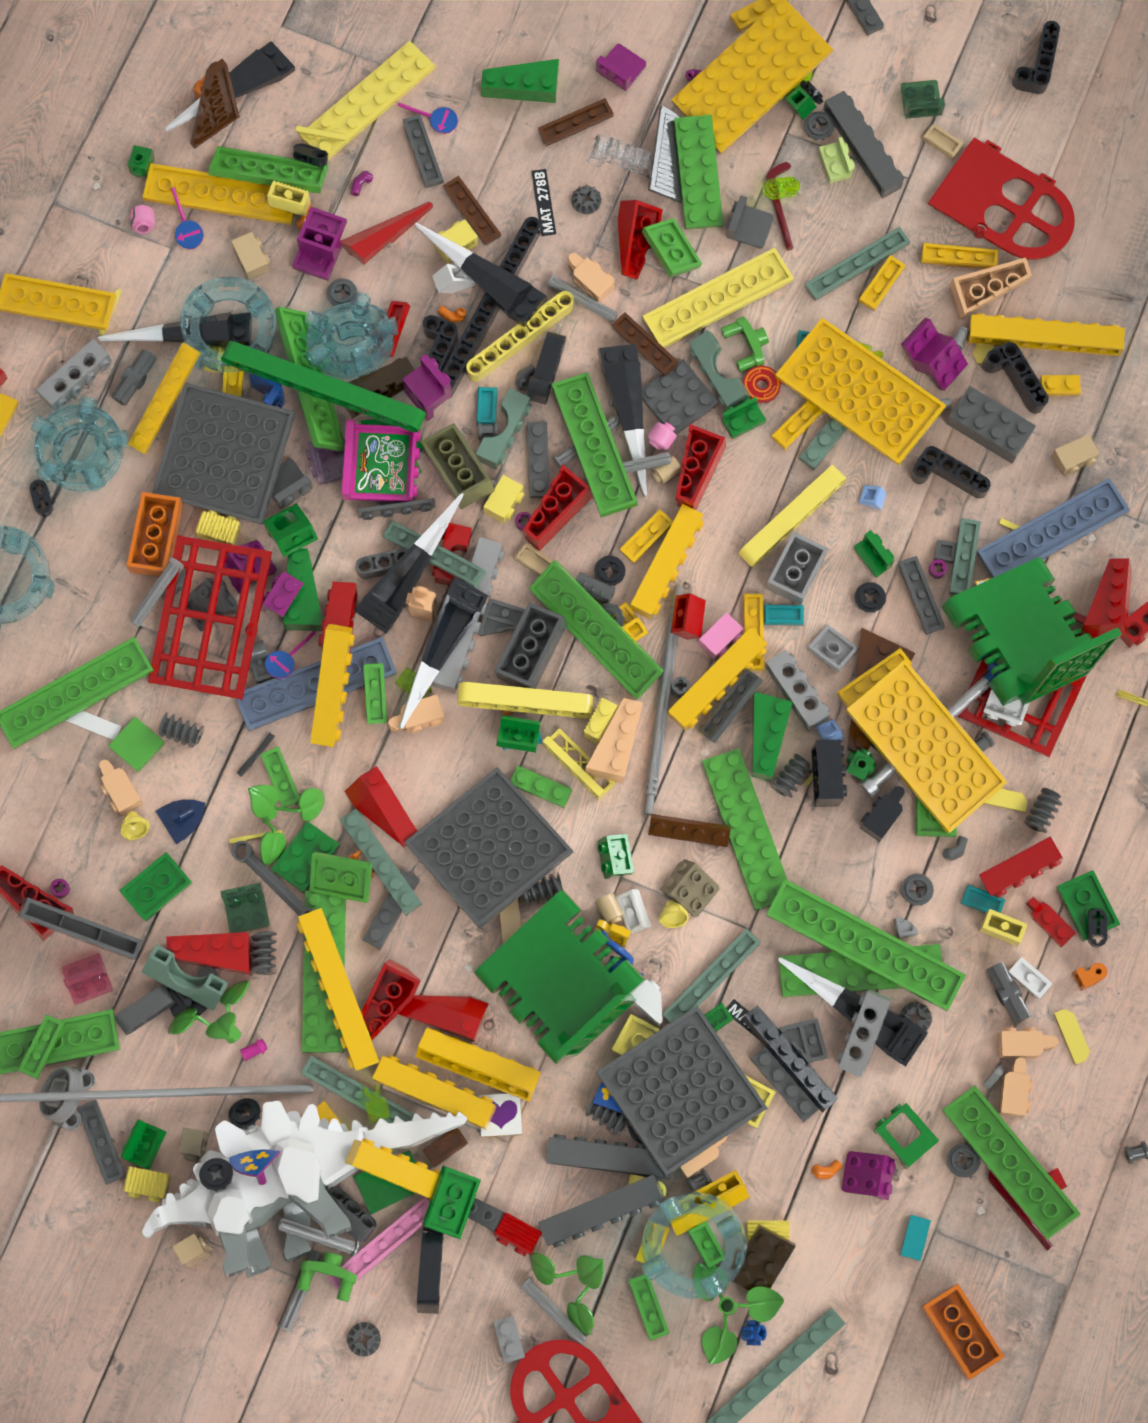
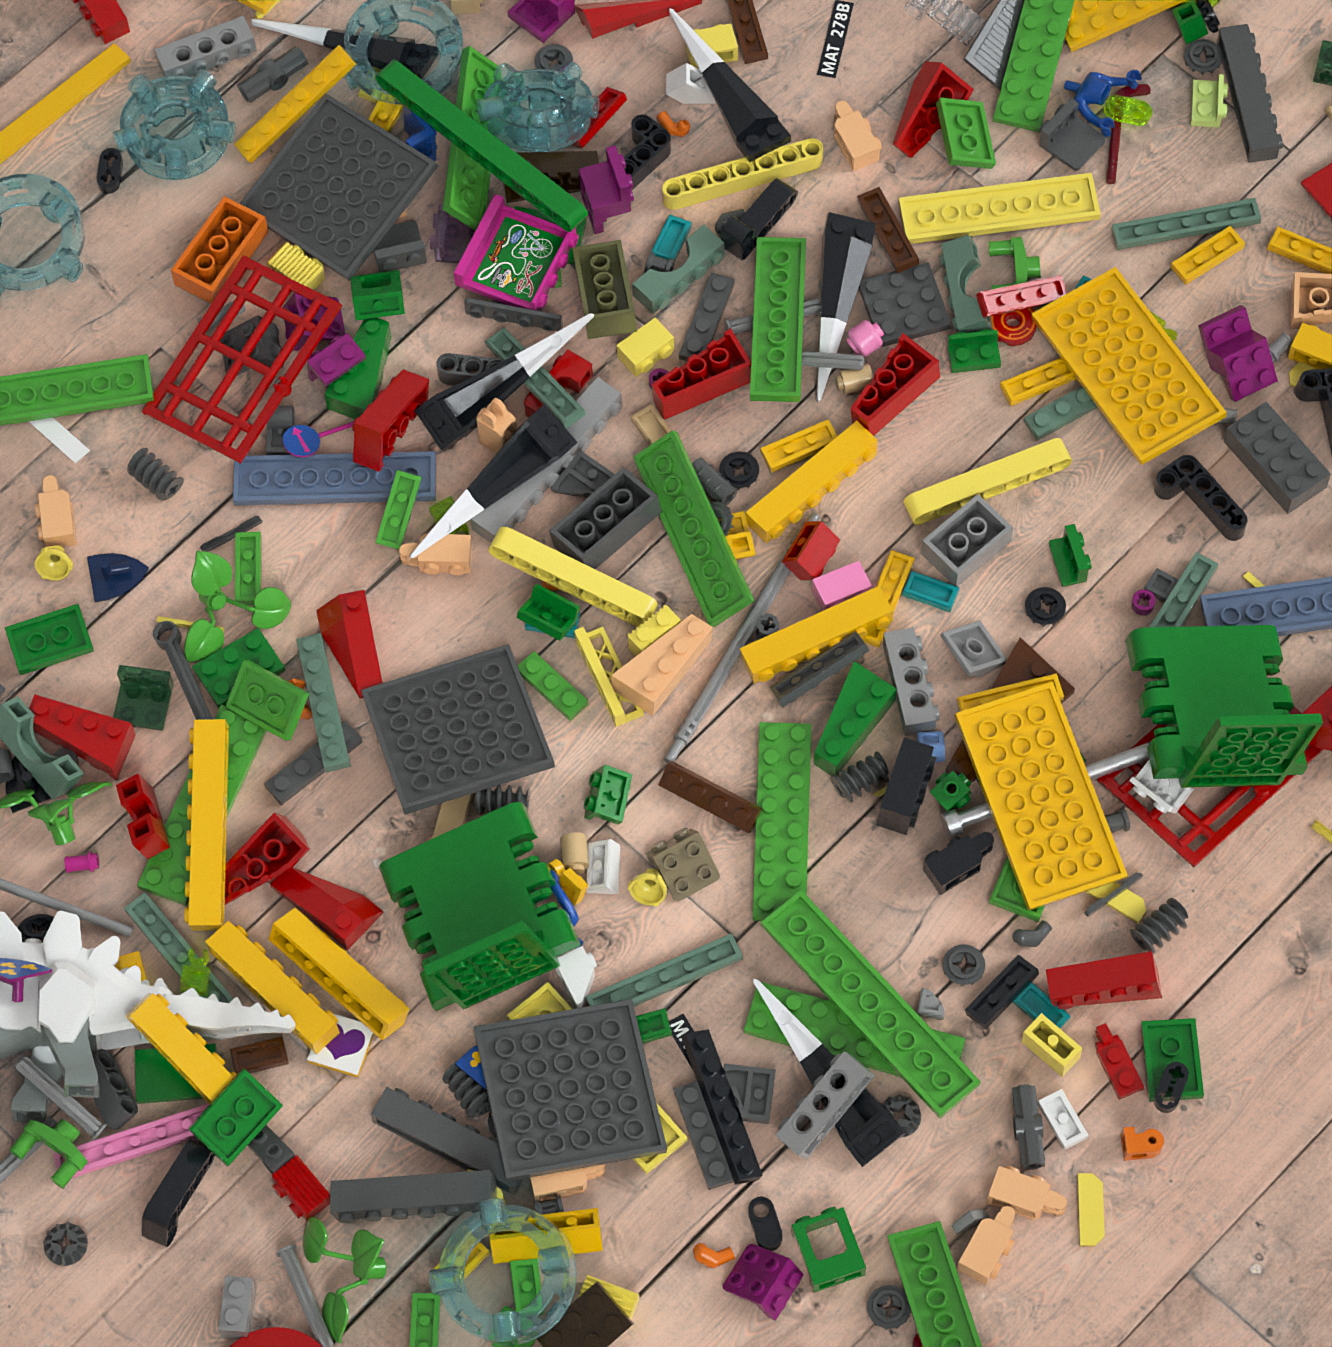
camera: 25 degrees right, 10 degrees down
(136, 744) = (98, 475): bright green tile -> none
(156, 591) = (192, 311): light grey axle -> none
(263, 953) = (140, 753): dark grey piece -> none
(295, 1009) = (147, 828): none -> red arch
(331, 685) = (348, 477): yellow brick -> none
(485, 315) = (715, 140): black beam -> none
(583, 298) = (835, 157): light grey axle -> none
(588, 206) = (887, 59): dark grey gear -> none
(752, 180) = (1095, 90): none -> blue piece
(763, 364) = (1020, 296): none -> tile
(857, 1136) = (767, 1228): none -> black piece
(873, 496) = (1097, 493): light blue slope -> none
(921, 595) = (1109, 625): dark grey plate -> none
(952, 900) = (1002, 991): none -> black plate
(995, 806) = (1101, 902): none -> dark grey piece

